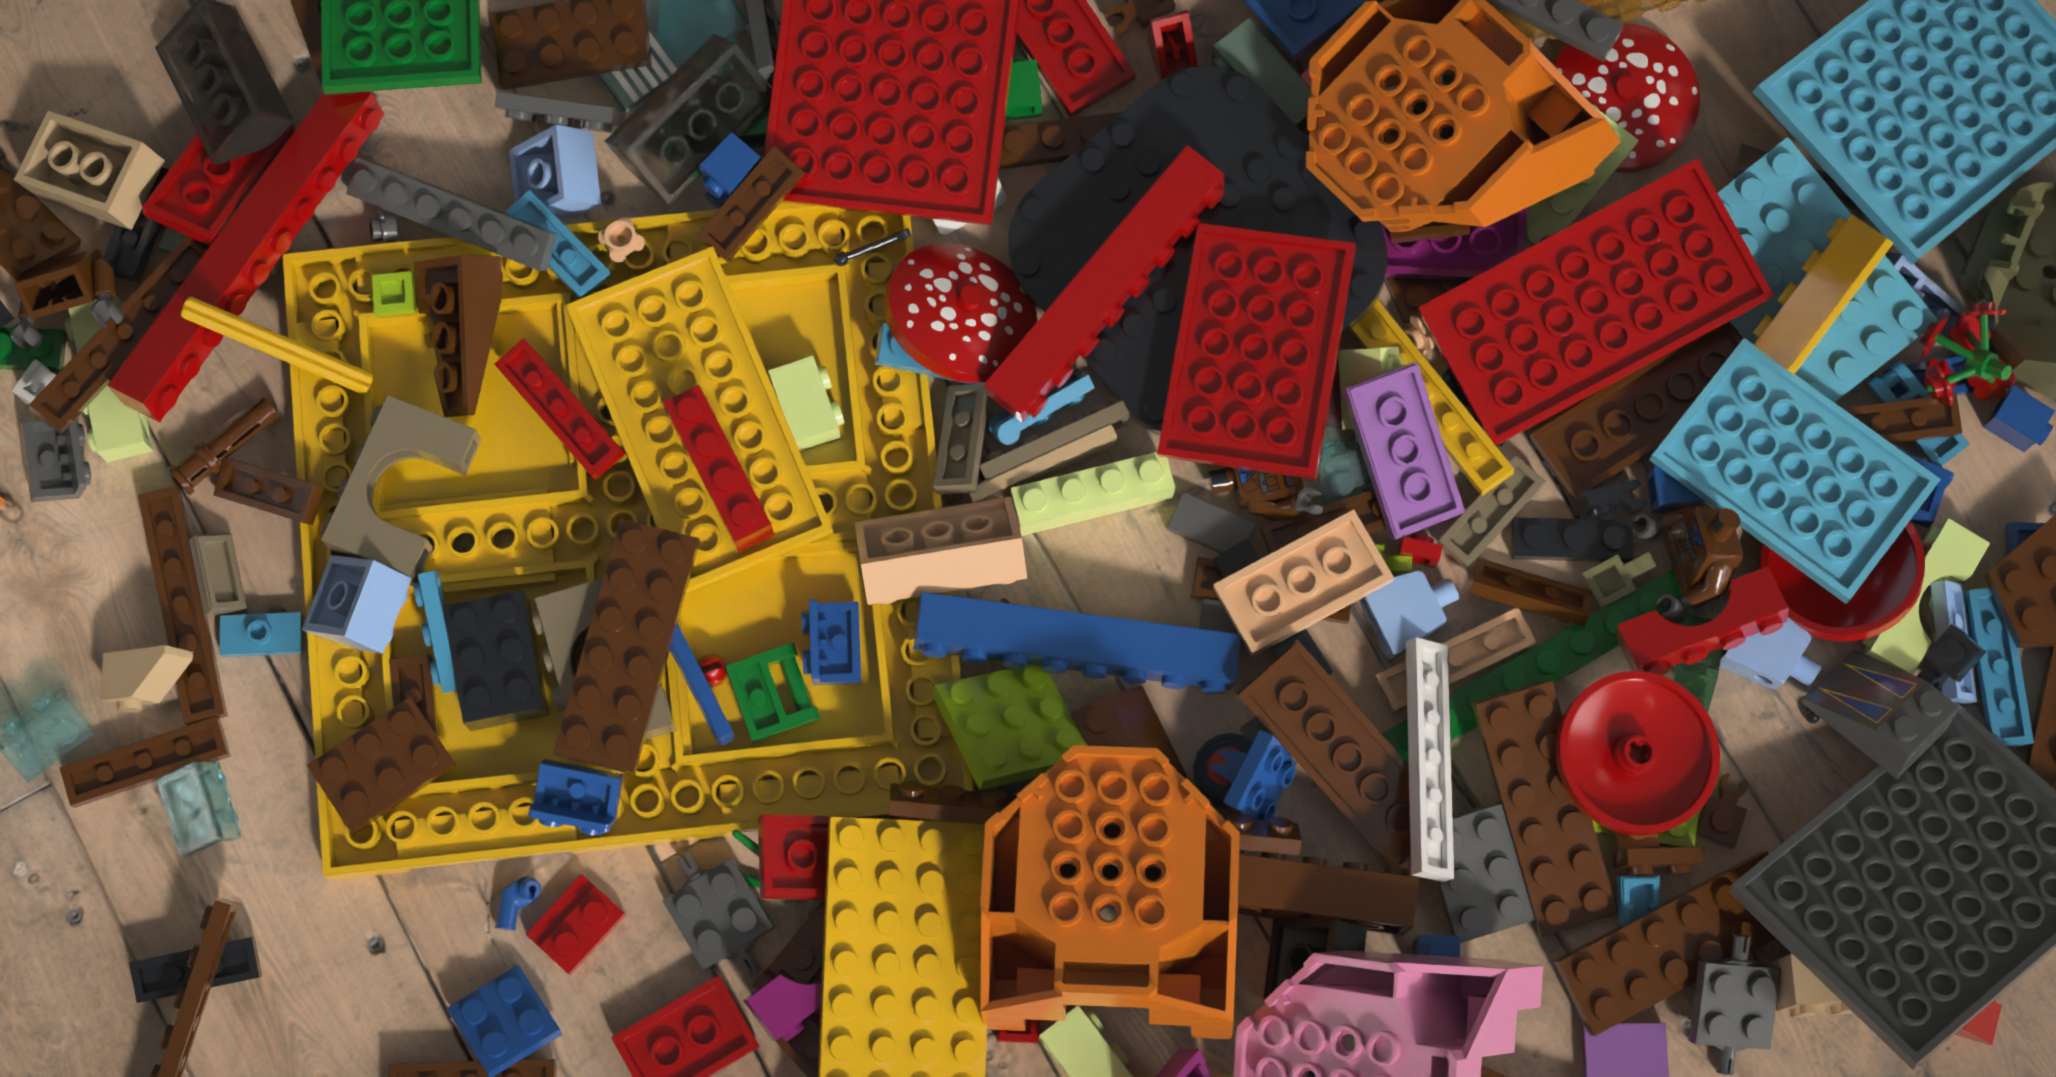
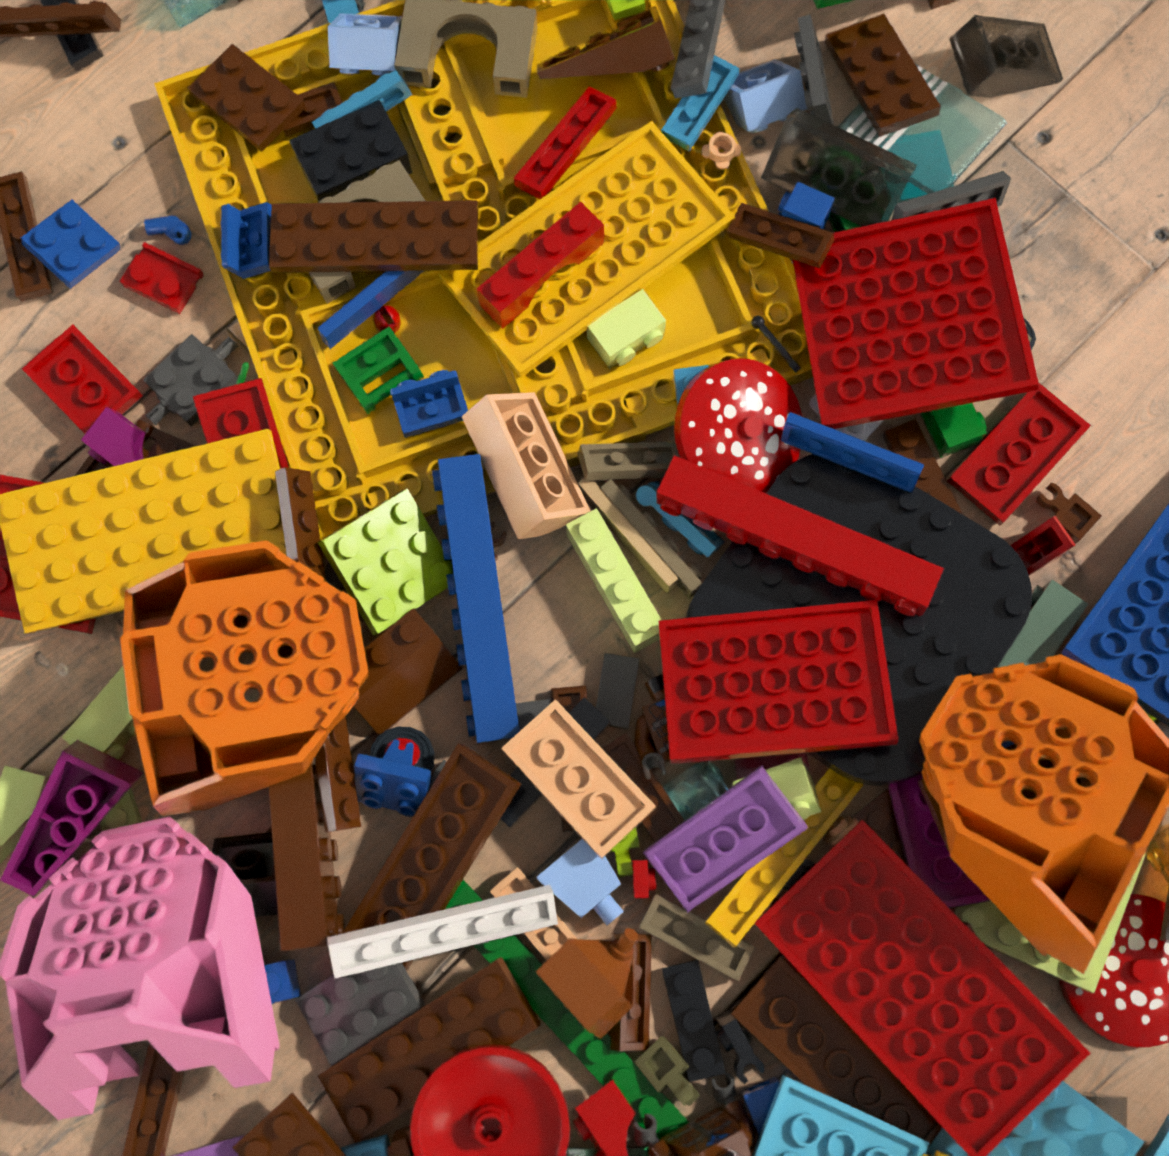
camera: 80 degrees right, 0 degrees up
(1027, 202) = (851, 452): none -> blue tile
(1516, 614) = (594, 979): none -> dark orange piece

